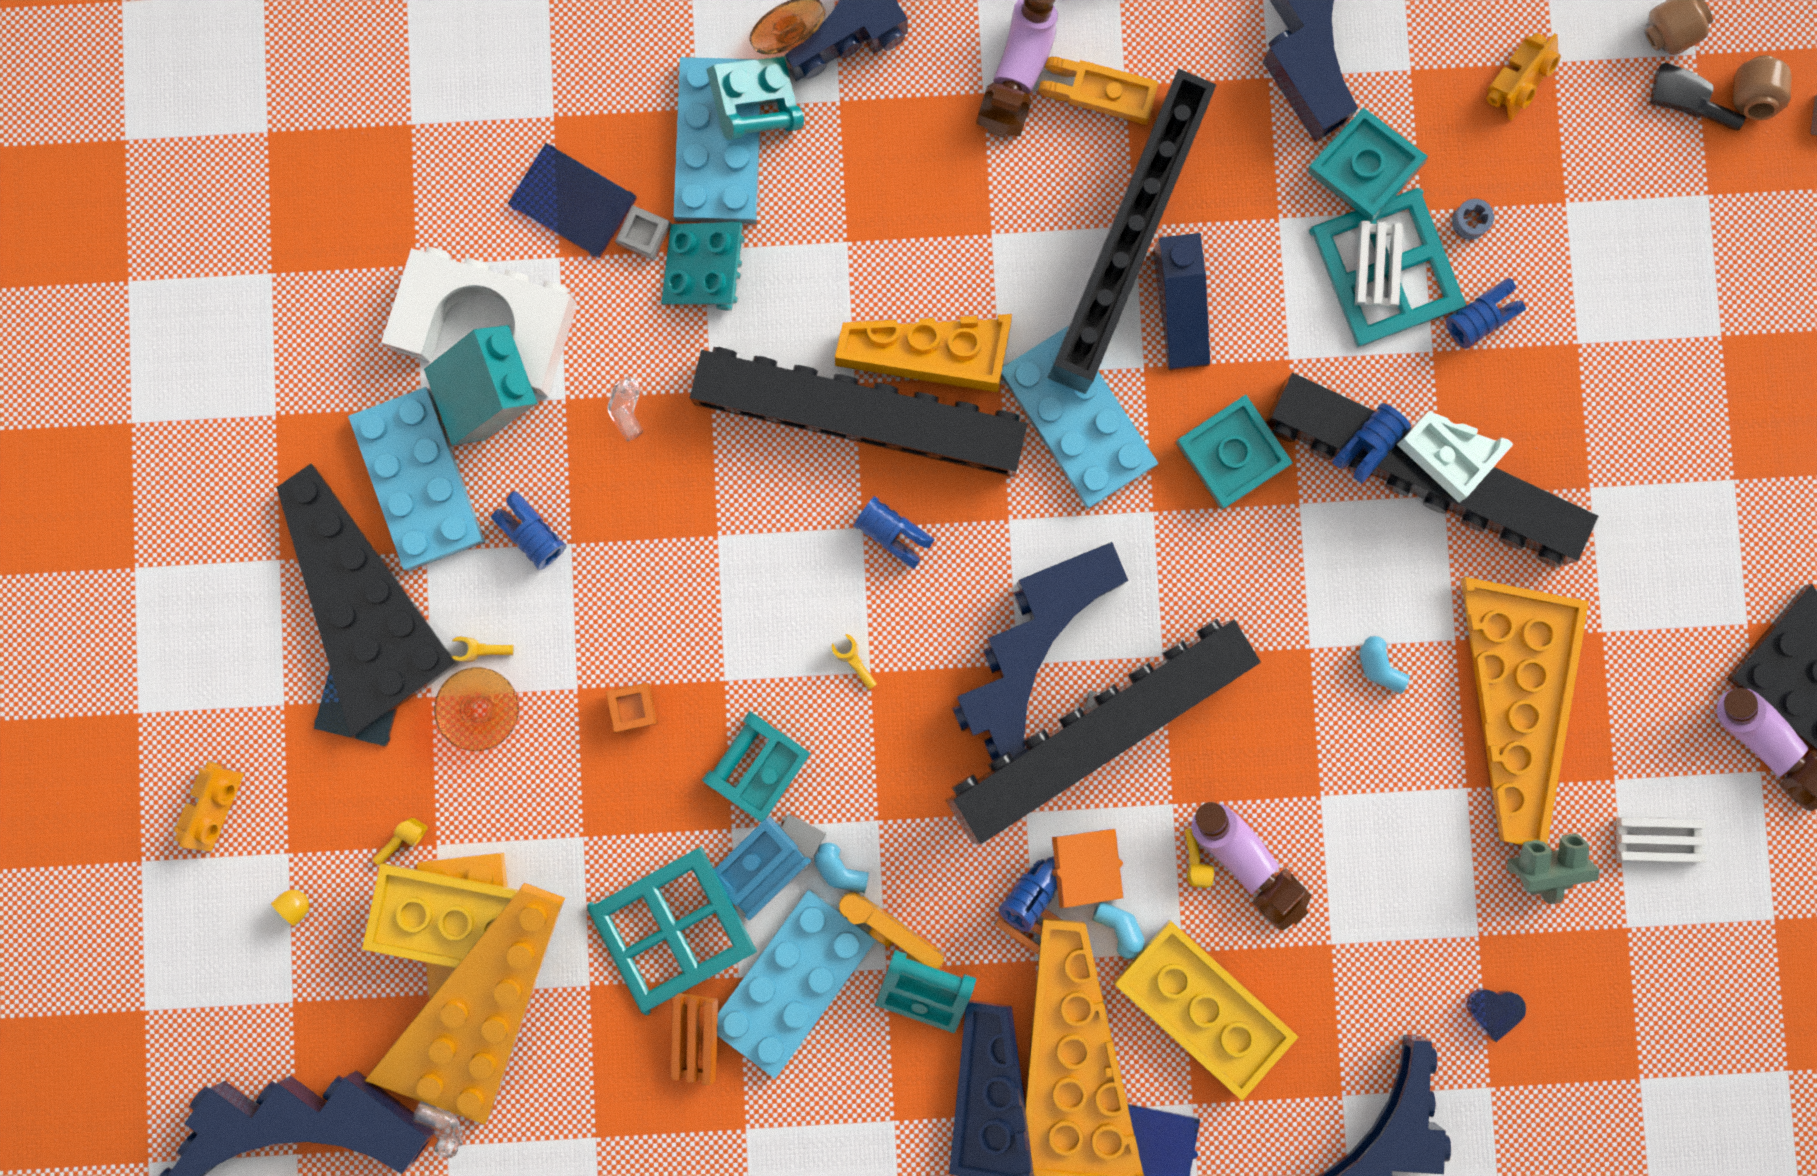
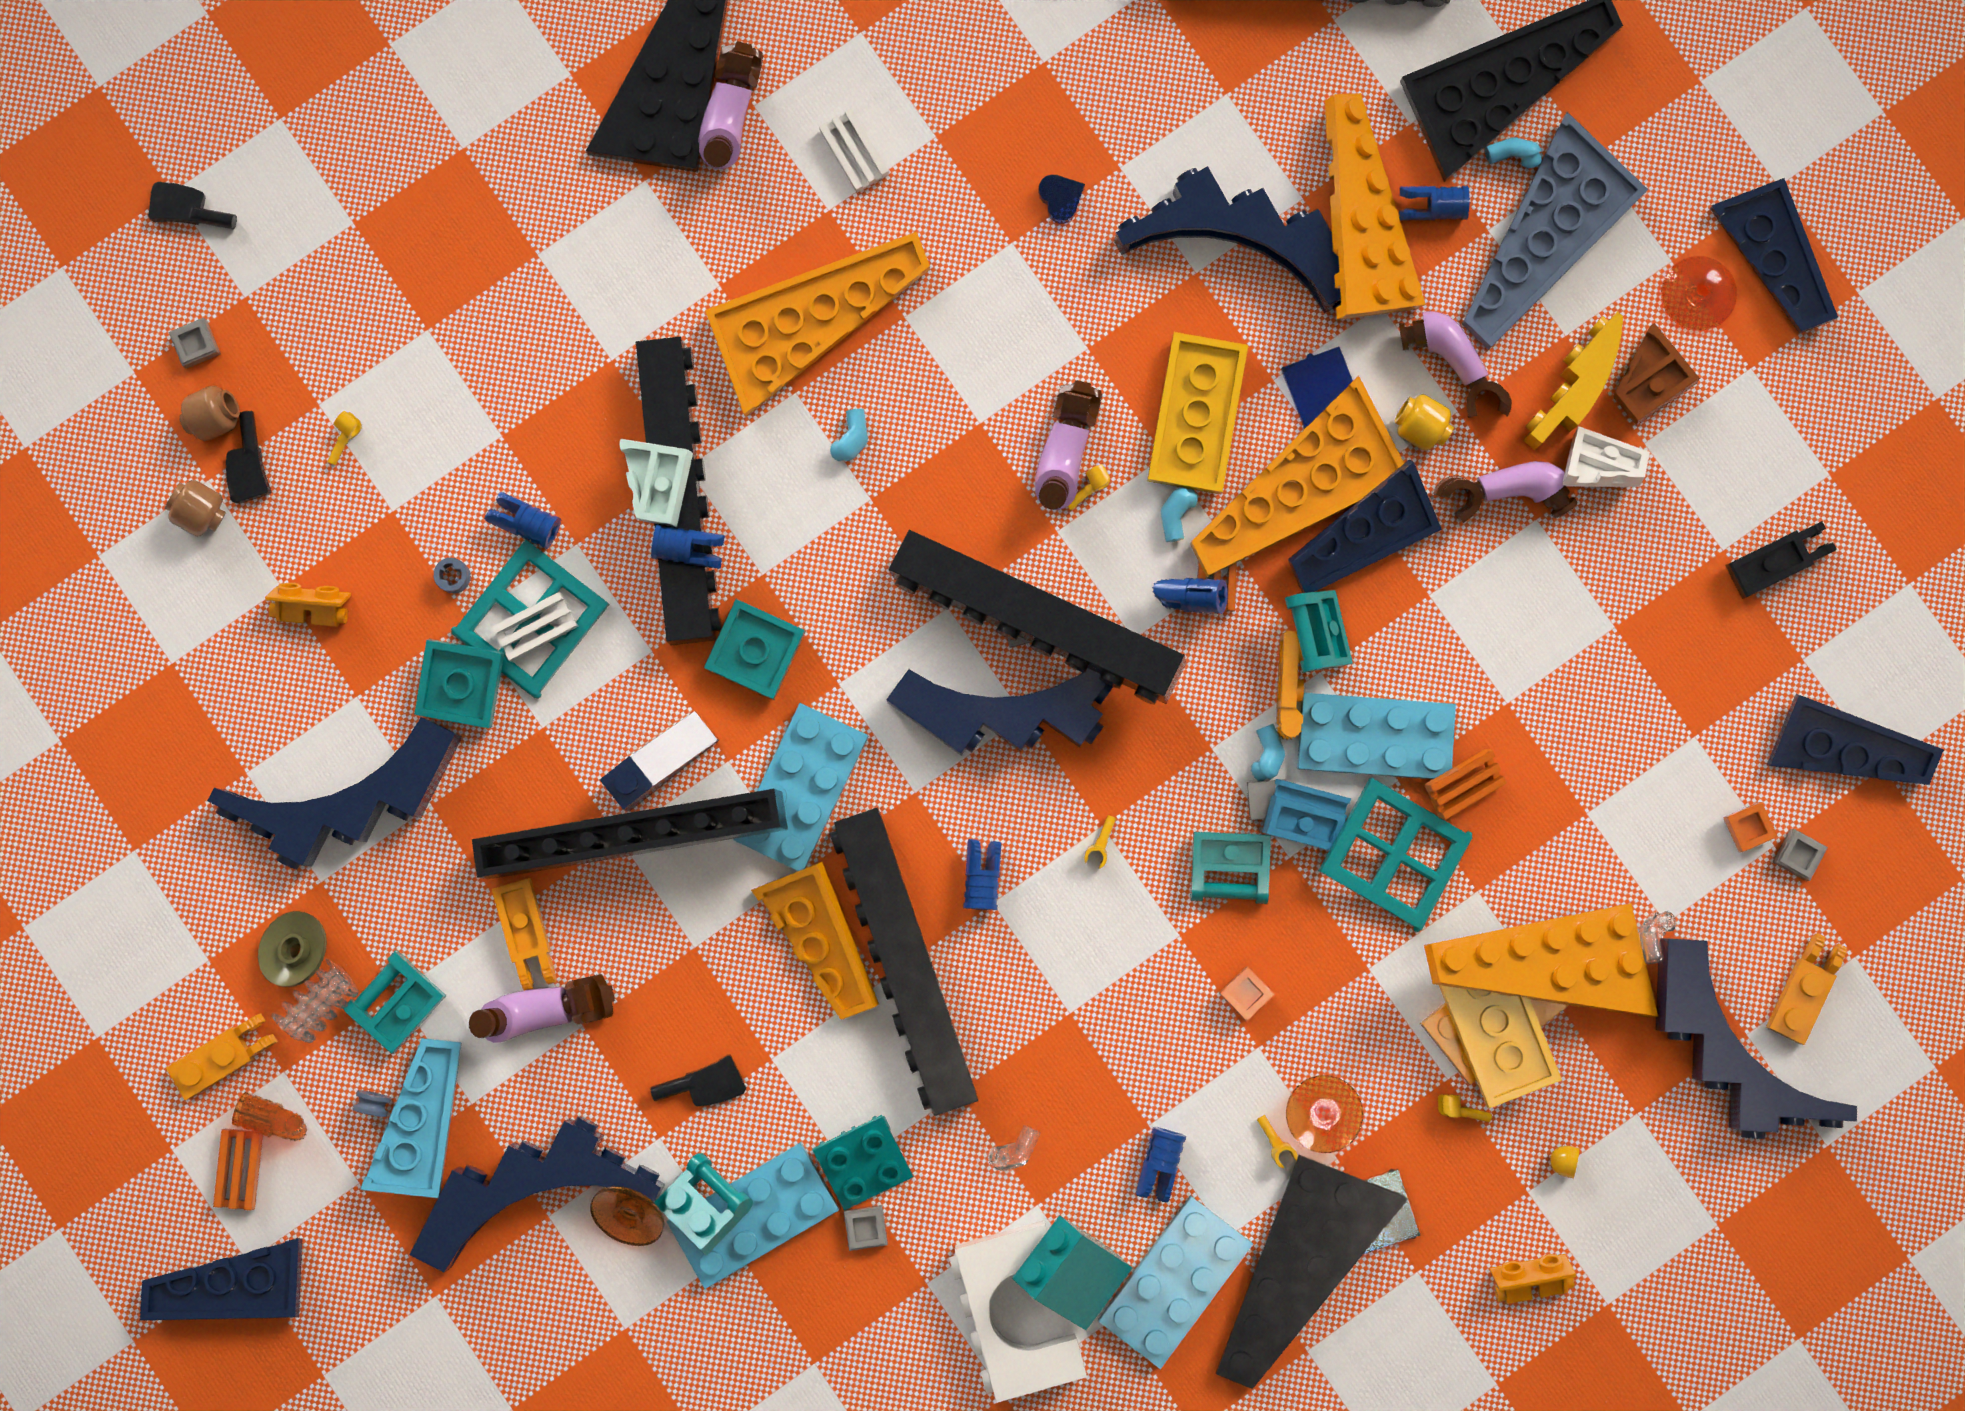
camera: 120 degrees left, 0 degrees up
(572, 200) = (874, 1303): clear blue piece -> none
(860, 169) = (706, 1085): none -> black piece
(1087, 868) = (1147, 565): orange piece -> none
(1554, 871) = (929, 216): sand green hips -> none
(1668, 208) = (350, 427): none -> yellow hand

